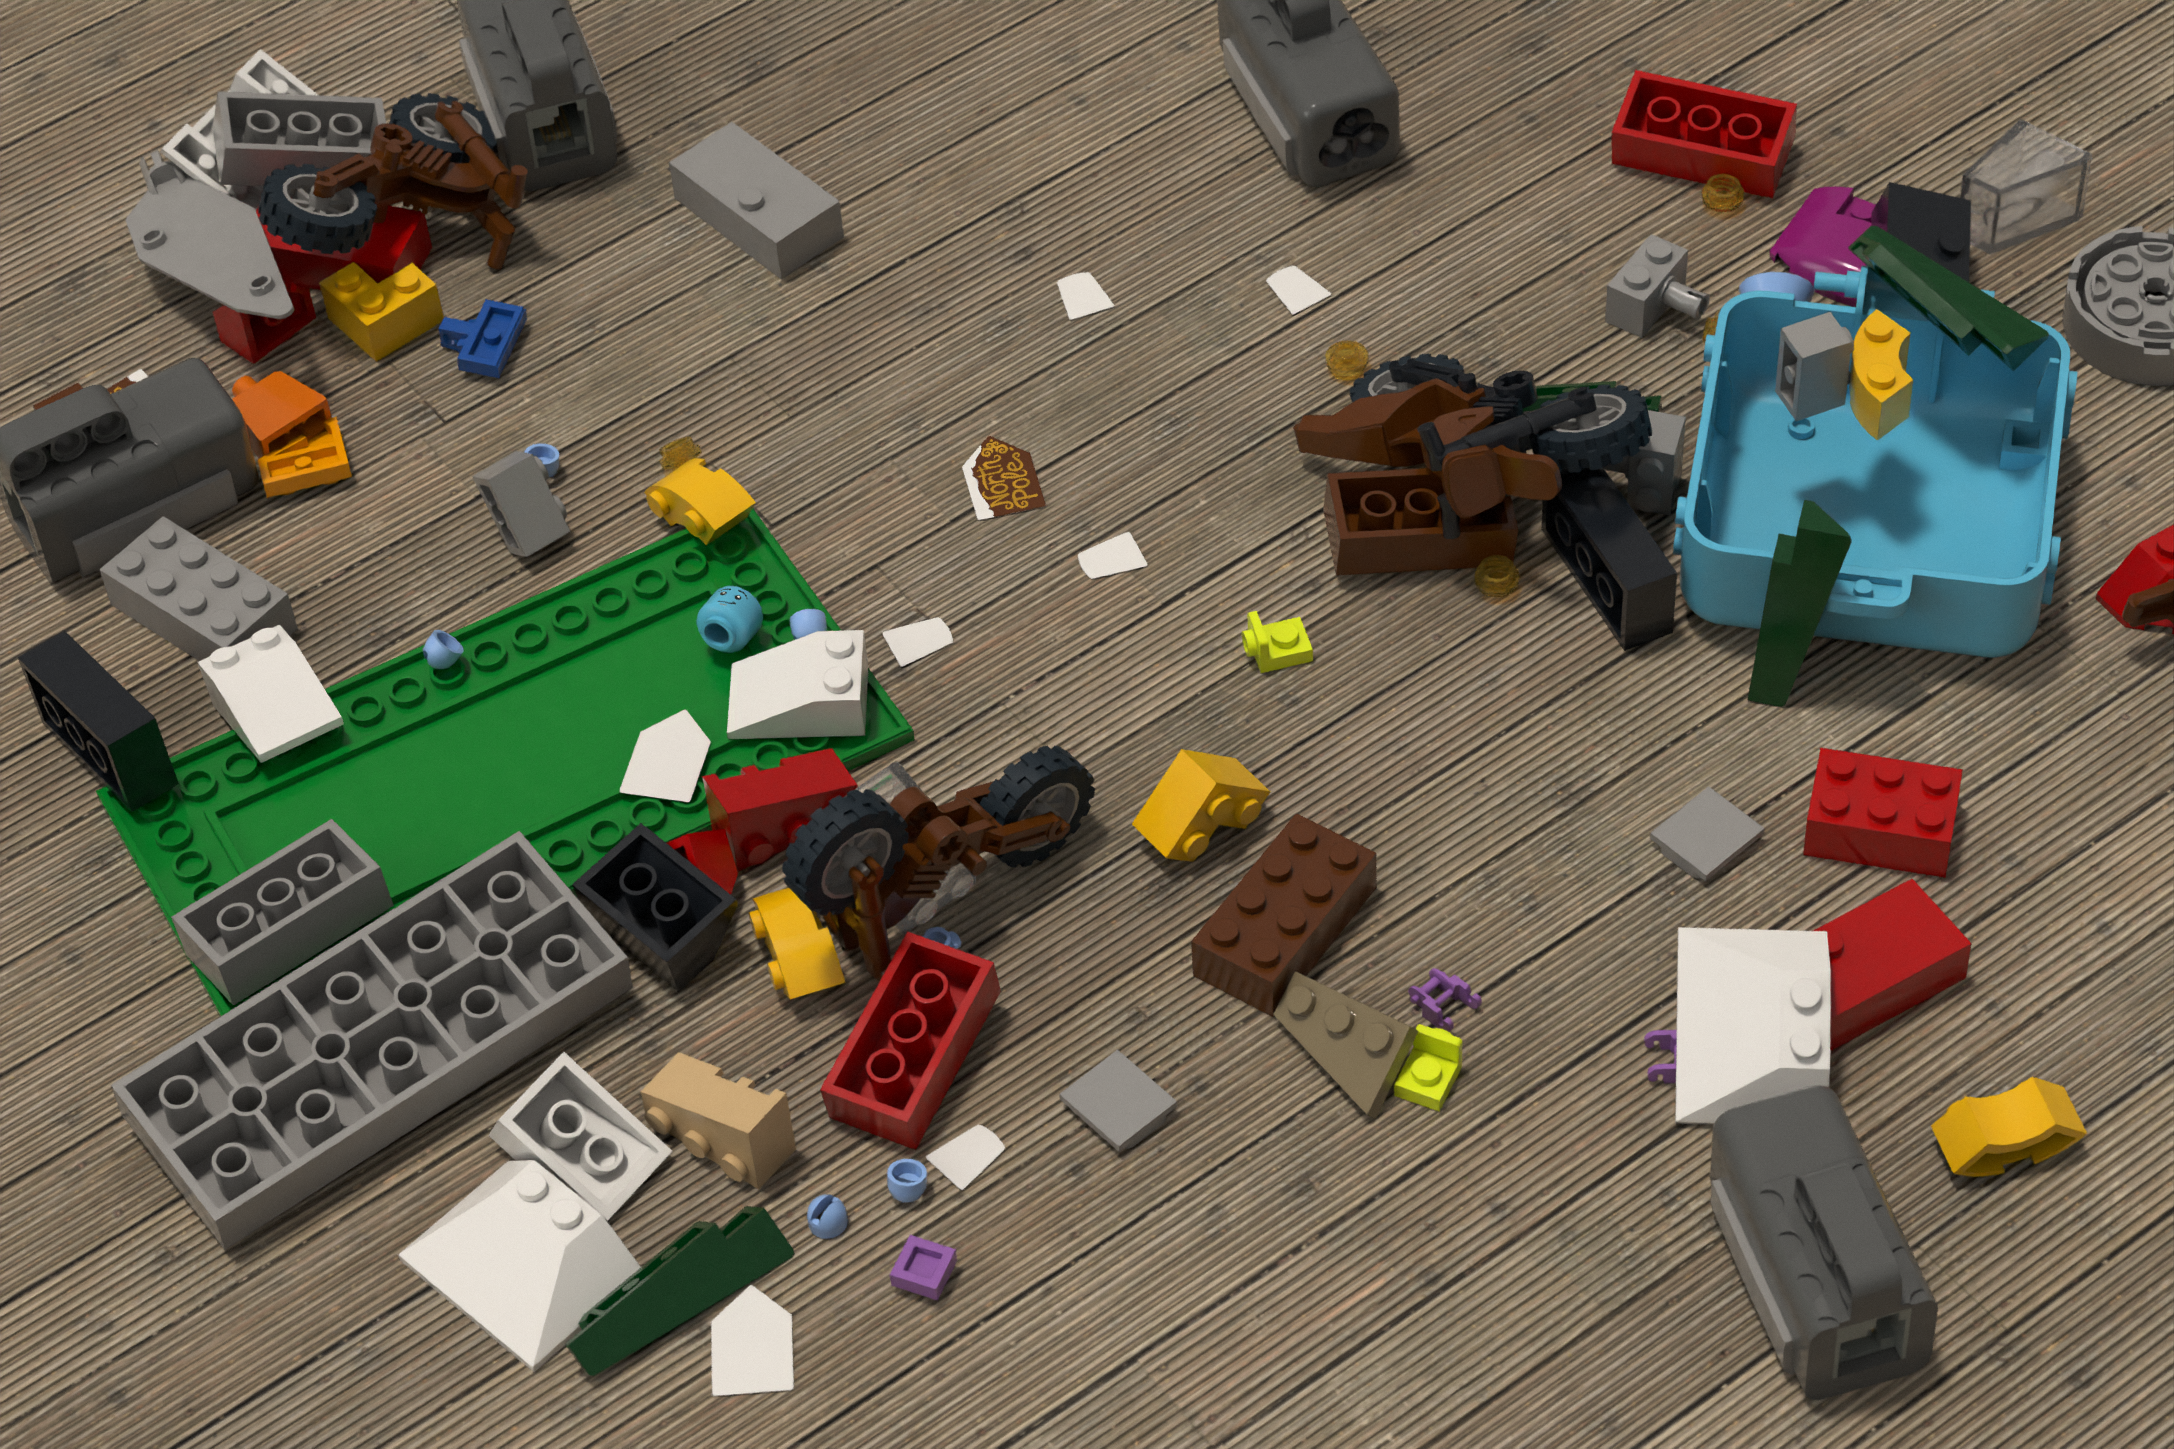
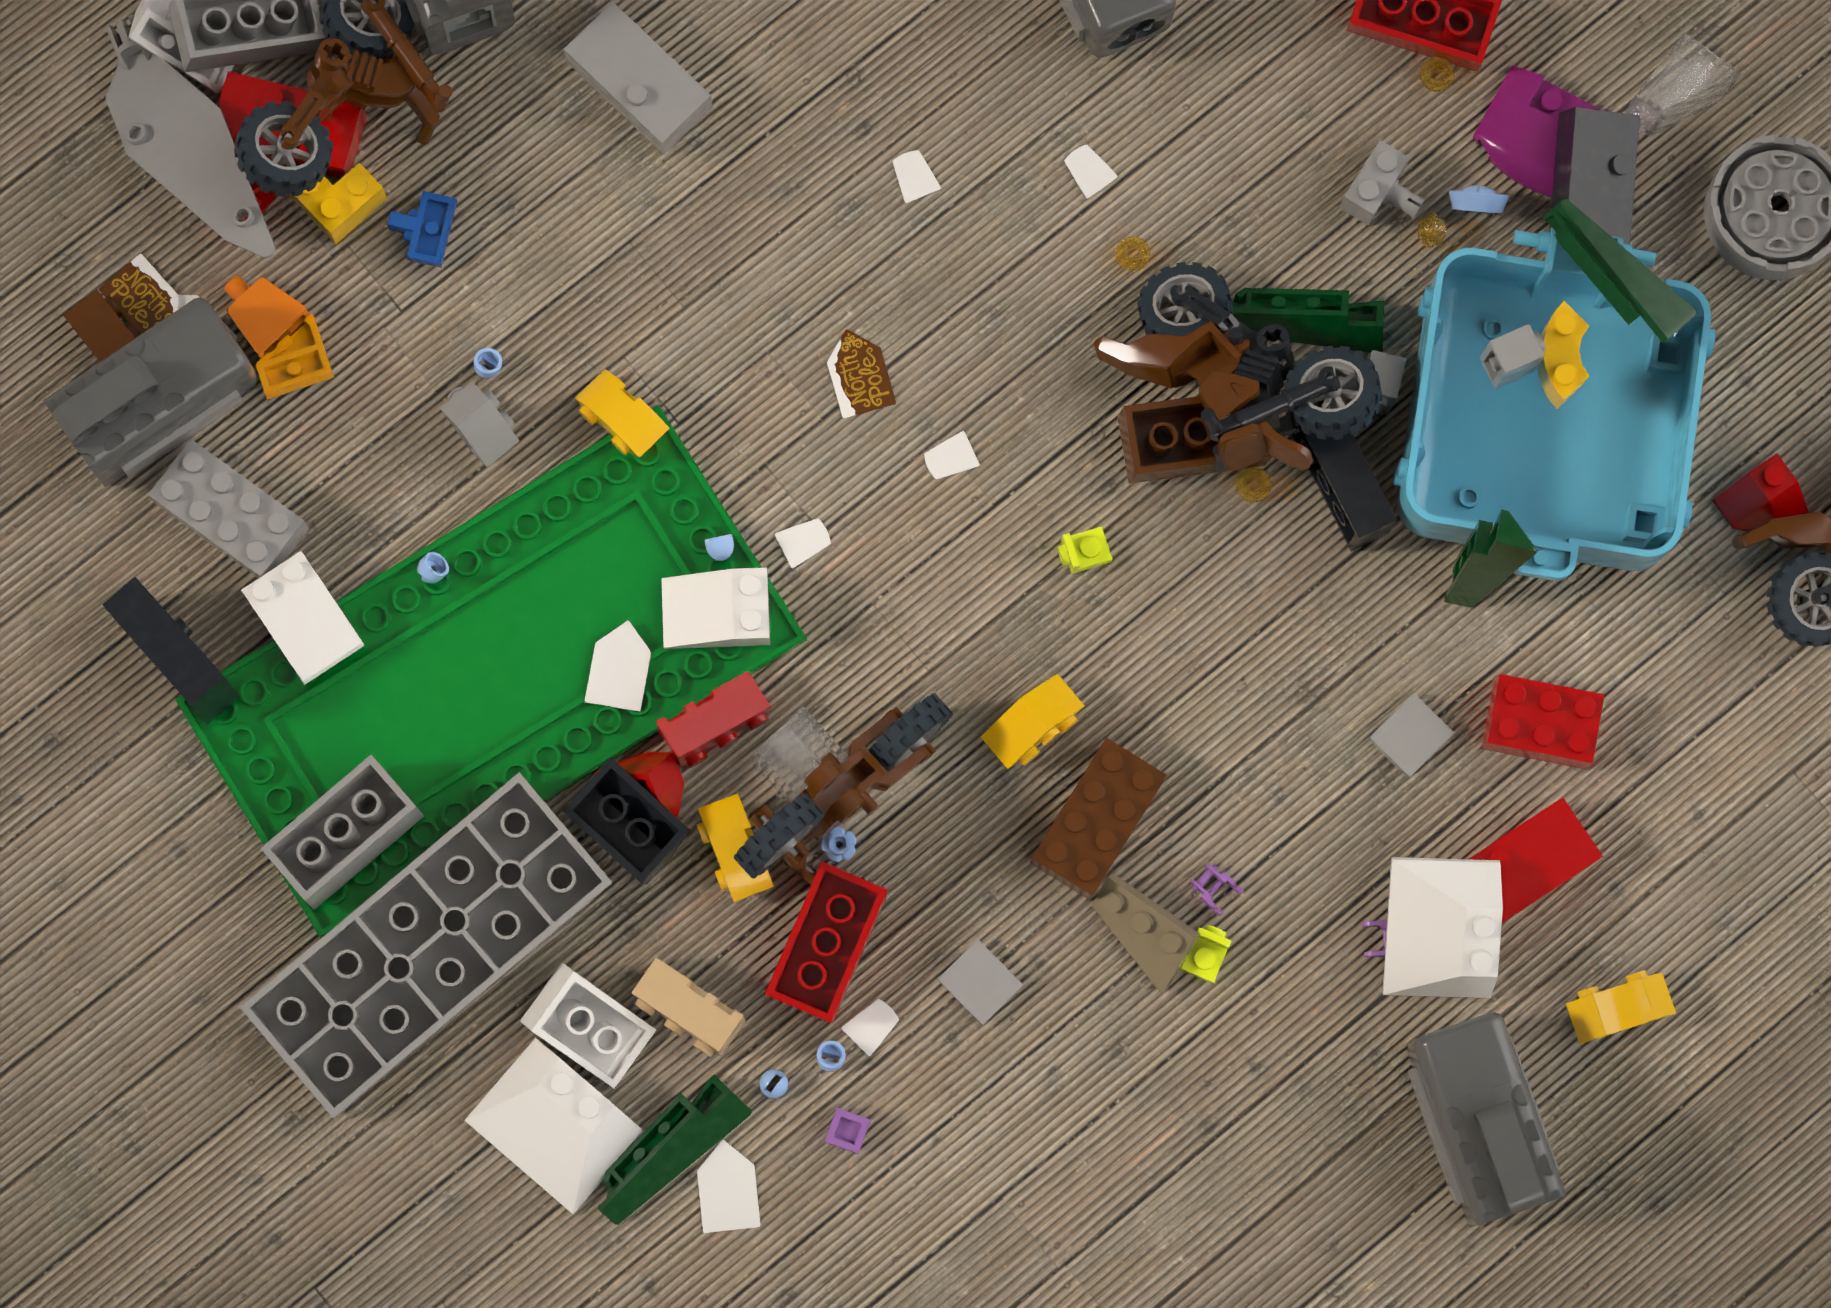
camera: 10 degrees left, 30 degrees up
(678, 452) = (599, 357): clear yellow plate -> none
(729, 619) = (657, 541): medium azure head -> none

